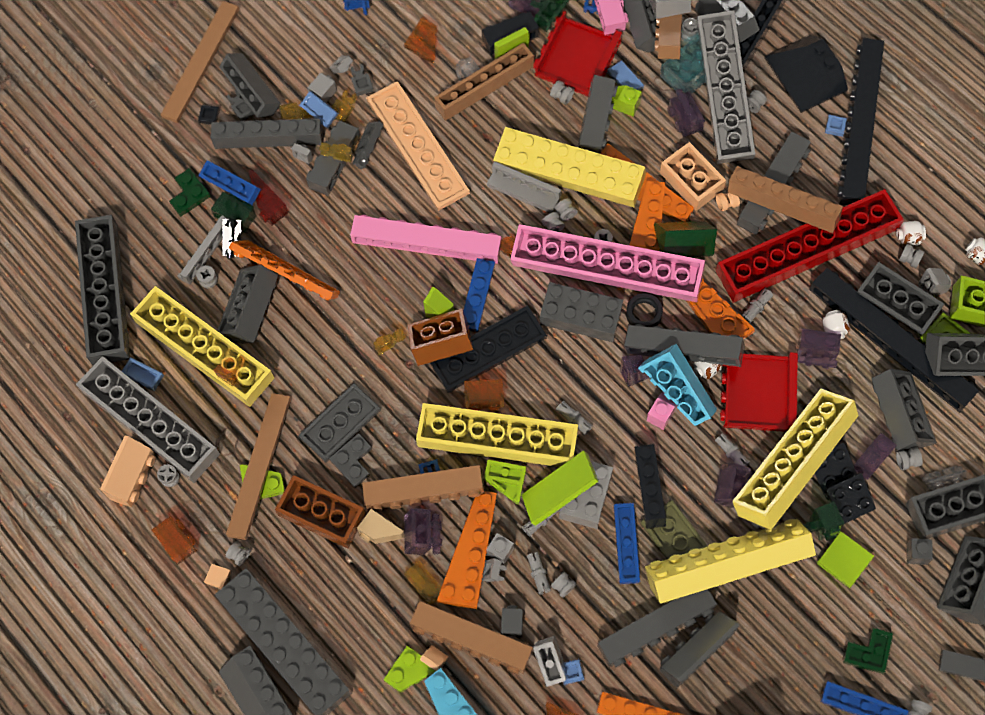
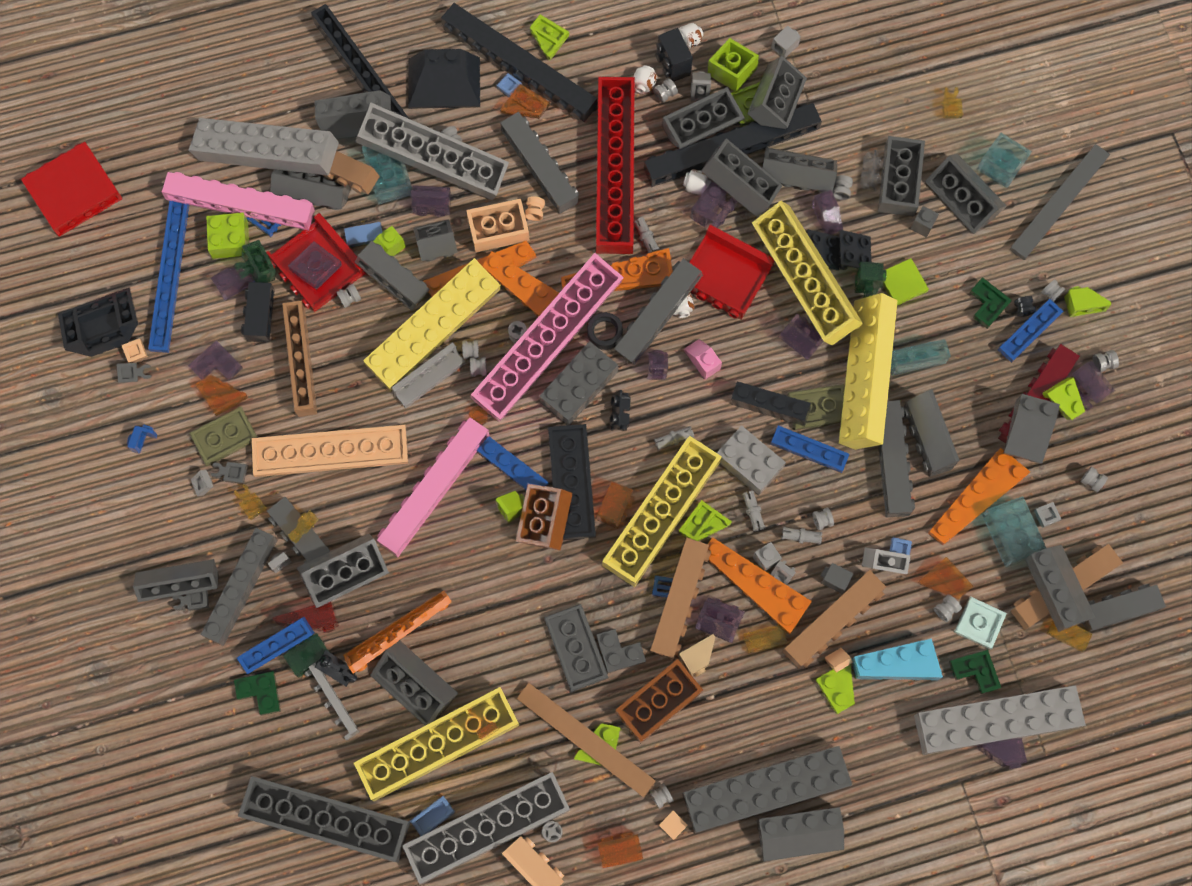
camera: 70 degrees left, 5 degrees up
(200, 62) = (117, 620): medium nougat tile -> none
(208, 114) = (183, 636): black tile -> none
(208, 281) = (364, 708): light grey wheel -> none
(292, 111) = (230, 552): clear yellow plate -> none
(314, 200) = (342, 570): none -> dark grey brick
(318, 109) = (241, 525): medium blue tile -> none
(323, 87) = (219, 512): light grey brick -> none
(366, 144) = (302, 495): dark grey hinge -> none
(387, 342) = (519, 571): clear yellow plate -> none
(390, 61) = (223, 436): none -> olive tile
(452, 21) = (215, 357): none -> plate
(466, 67) = (277, 368): clear brick -> none
(511, 42) = (277, 316): lime tile -> none
(559, 488) = (740, 478): lime tile -> none
(568, 361) = (620, 402): none -> black hinge
(573, 53) = (315, 265): none -> plate
(650, 134) = (435, 240): none -> dark grey slope
(680, 384) = (692, 332): medium azure wedge -> none
(686, 238) = (554, 260): dark green slope -> none
(689, 29) = (348, 150): light grey wheel -> none
(732, 451) = (768, 322): light grey pin -> none
(772, 604) = (919, 357): none -> clear light blue brick
(785, 199) = (567, 159): medium nougat brick -> none
(824, 145) = (526, 103): none -> clear orange wing
(858, 357) = (742, 178): none -> dark grey brick
(886, 689) = (1024, 306): none -> black wheel
(904, 134) = (548, 35): none -> lime wing
(949, 244) = (674, 55): none -> black brick

